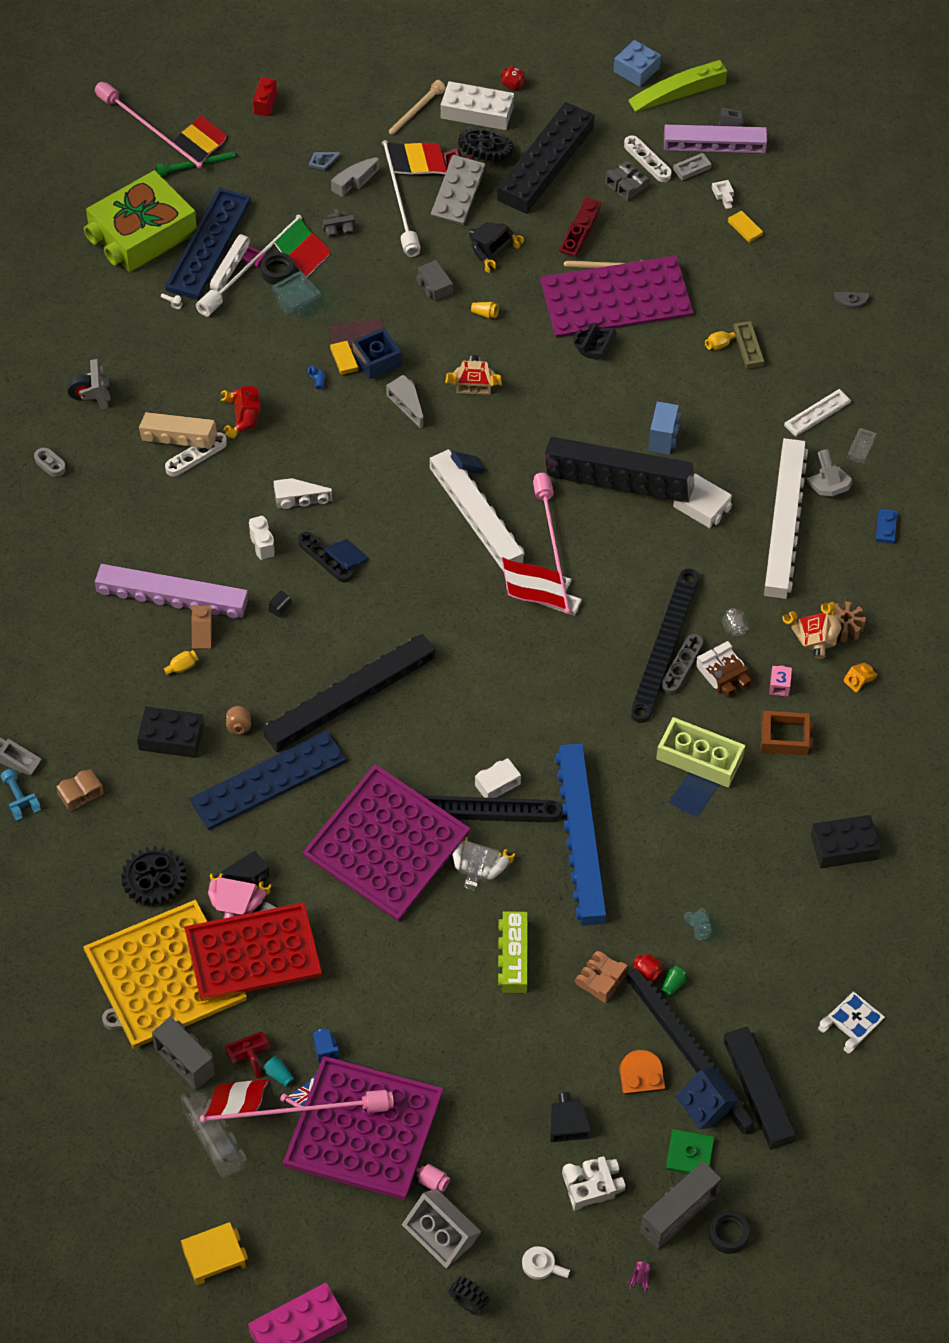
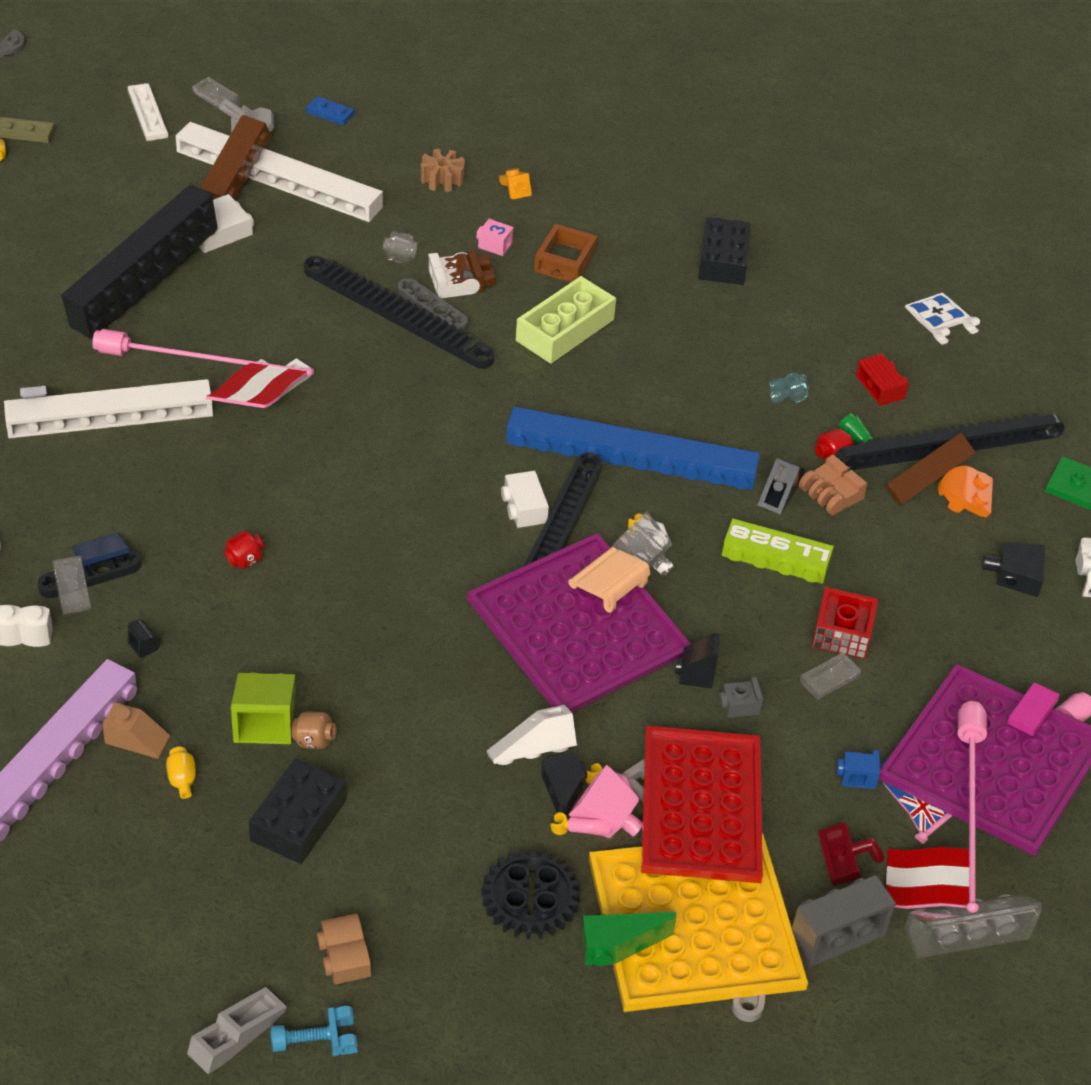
camera: 75 degrees left, 10 degrees down
(125, 927) = (619, 936): none -> green slope
(245, 684) = (263, 708): none -> lime slope
(267, 780) = (422, 731): dark blue plate -> none
(277, 1070) = (884, 829): teal cone -> none
(280, 845) = (540, 733): none -> white slope
(303, 549) = (71, 585): none -> clear plate
(348, 692) = (327, 607): black brick -> none
(363, 964) = (741, 698): none -> dark grey brick
(377, 631) = (243, 550): none -> red head
(378, 925) = (699, 662): none -> black slope
(406, 1012) = (830, 676): none -> clear plate
(409, 1141) = (1033, 709): none -> dark pink tile
(425, 845) = (612, 576): none -> light nougat piece
(455, 1008) = (845, 623): none -> red brick
(586, 939) = (780, 486): none -> slope
(647, 1038) = (930, 469): none -> reddish brown tile
(664, 428) = (99, 216): medium blue brick -> none
(693, 794) = (609, 349): dark blue piece -> none
(707, 1098) = (1026, 438): dark blue brick -> none
(742, 988) = (882, 379): none -> red brick
(759, 1087) = (1008, 401): black brick -> none
(767, 484) = (237, 158): none -> reddish brown brick
(818, 630) = (451, 185): torso -> none

